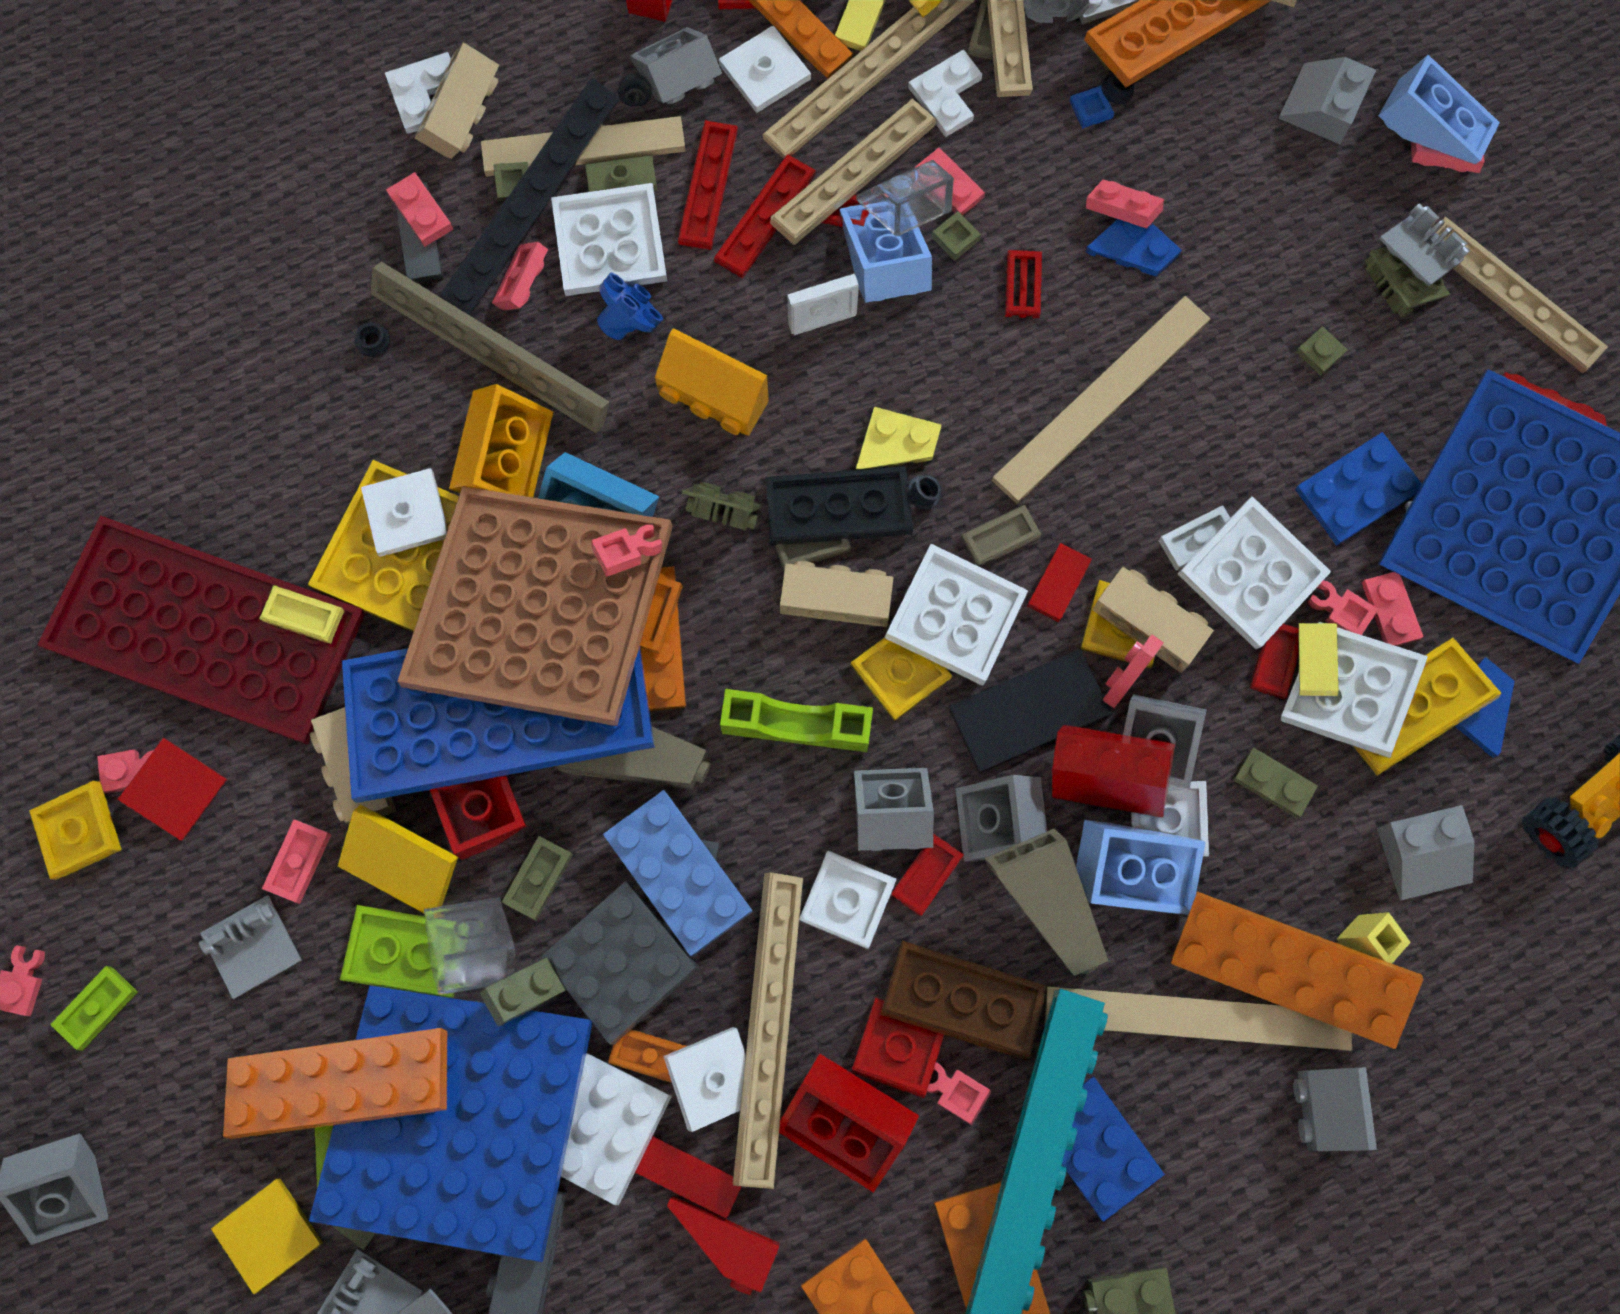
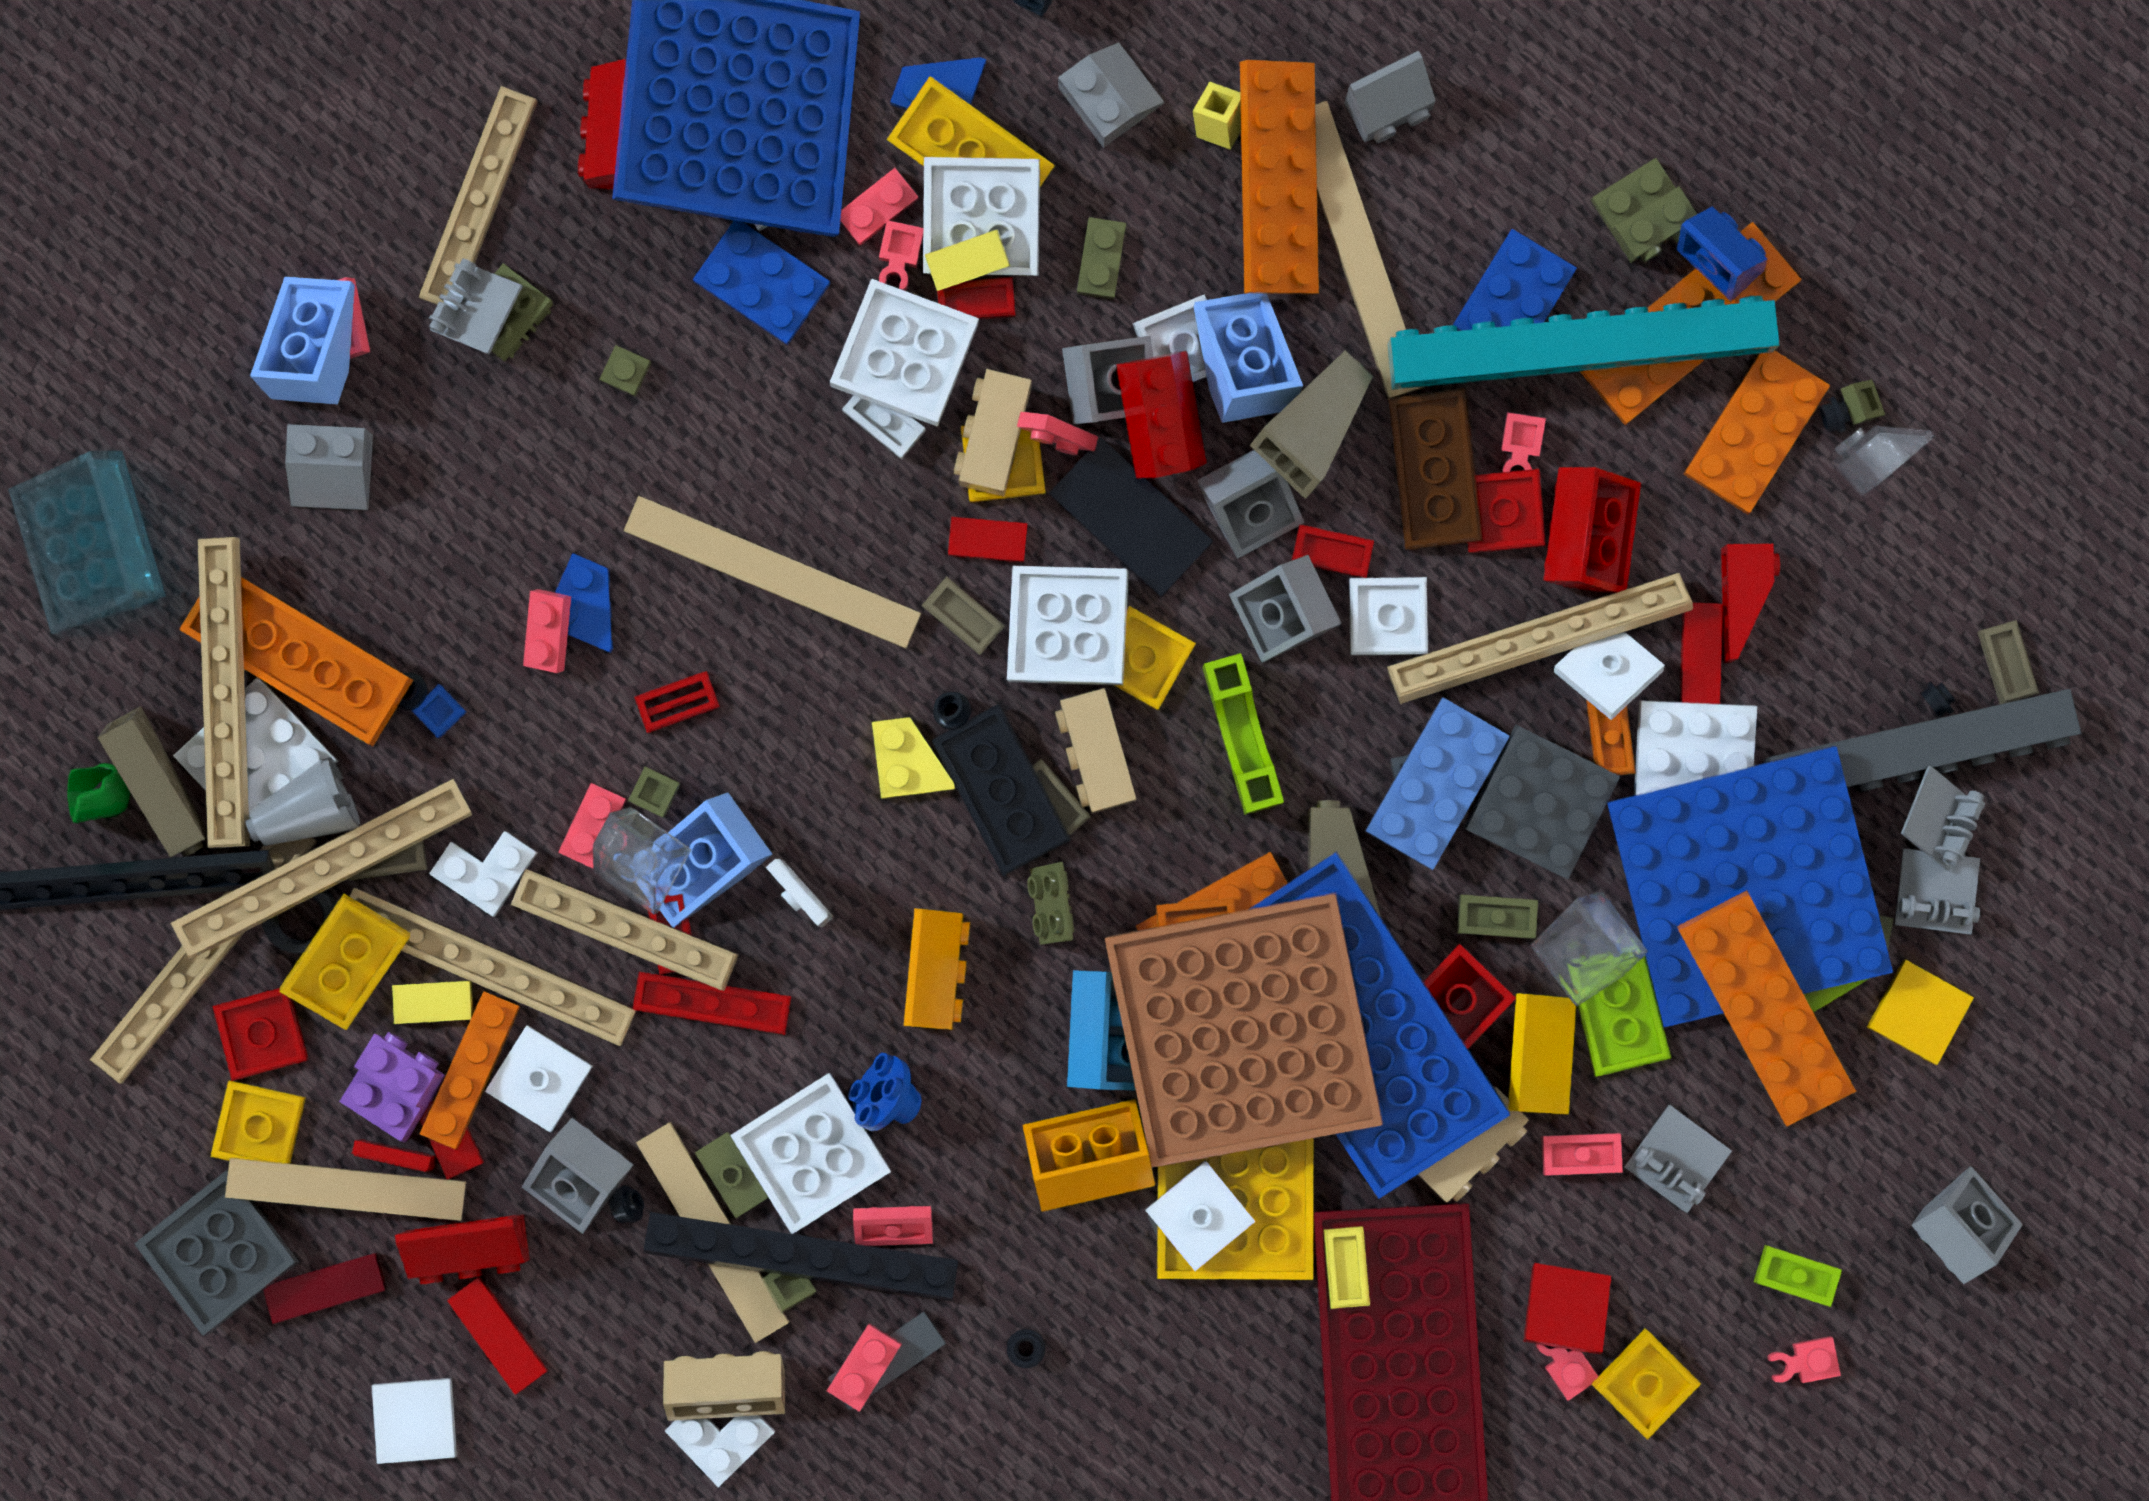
camera: 115 degrees left, 10 degrees up
(489, 347) = (985, 1222): dark tan plate -> none
(522, 991) = (1610, 876): olive plate -> none
(621, 551) = (1162, 967): coral plate -> none
(708, 185) = (701, 1079): red tile -> none

